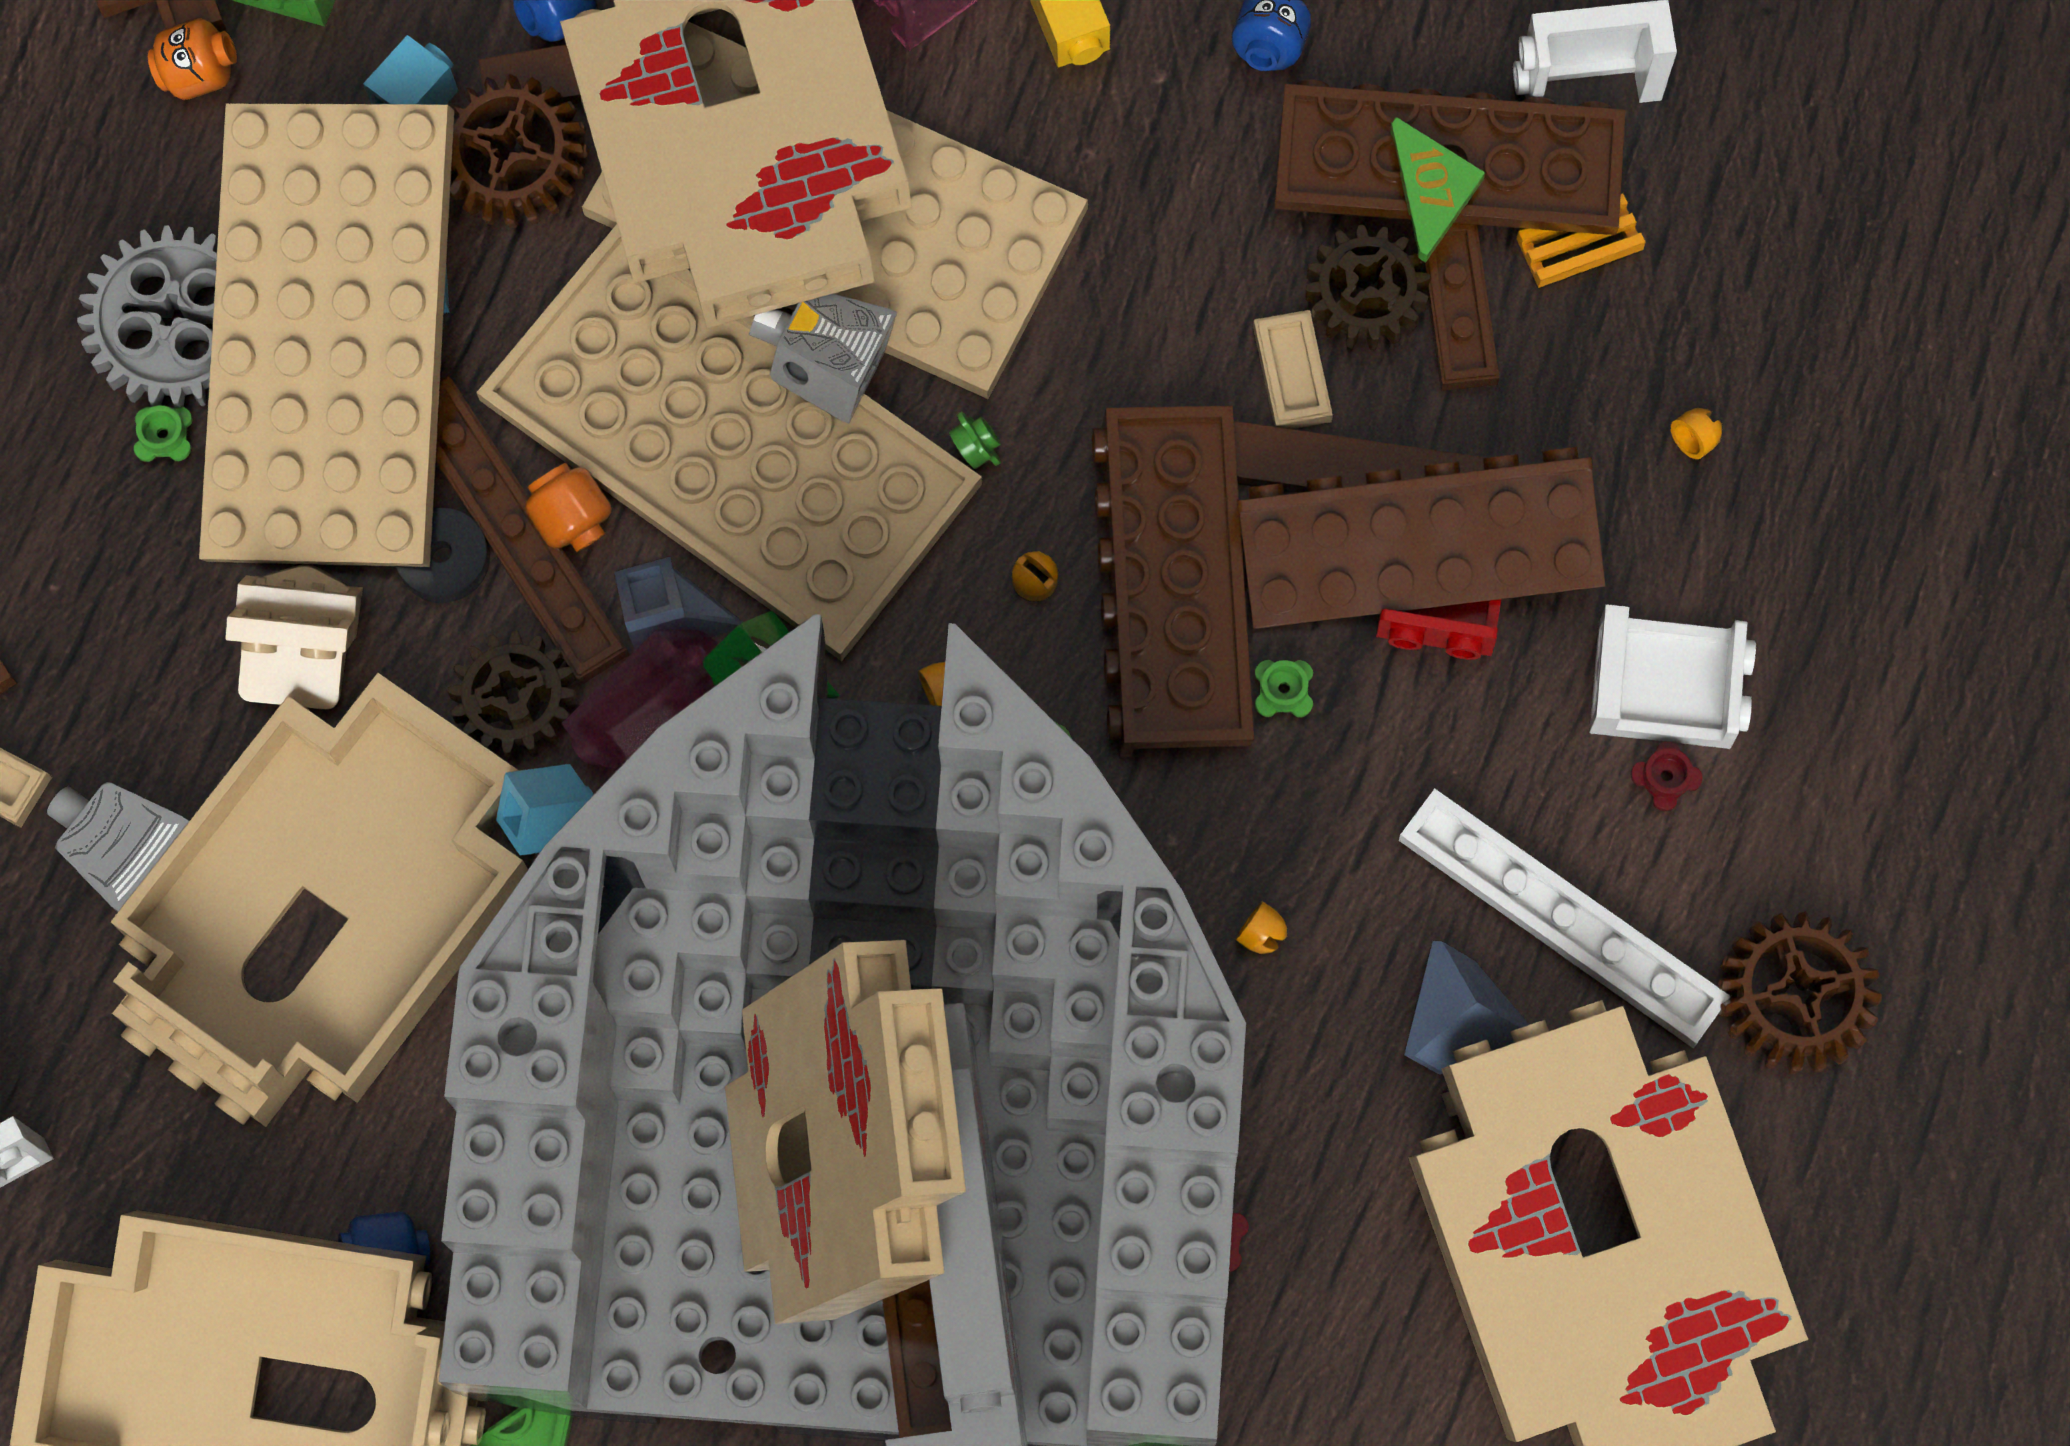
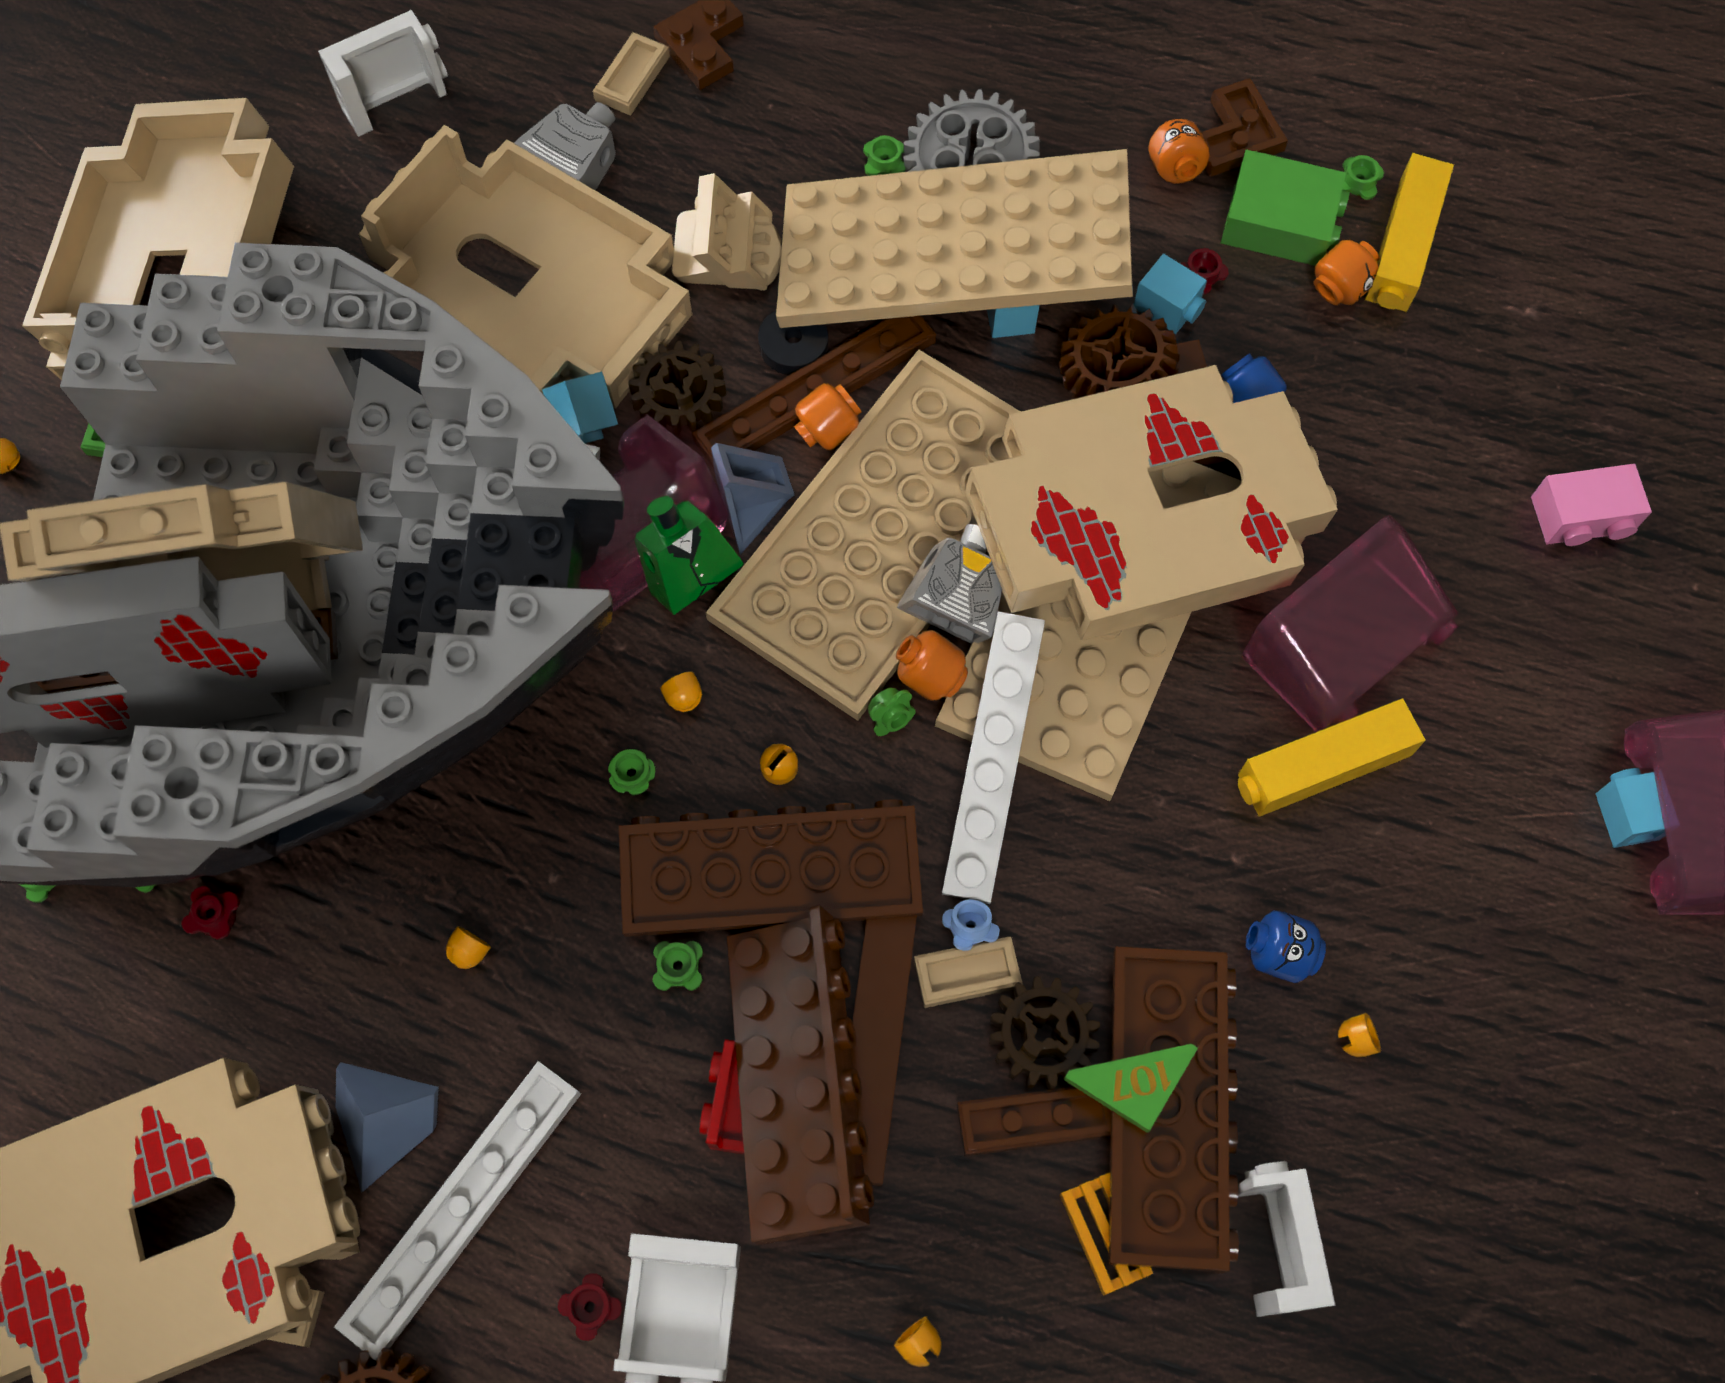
camera: 85 degrees right, 5 degrees down
(361, 37) = (1211, 263): none -> dark red plate
(922, 388) = (931, 665): none -> orange head
(1041, 322) = (993, 758): none -> white plate
(1230, 351) = (970, 913): none -> light blue plate

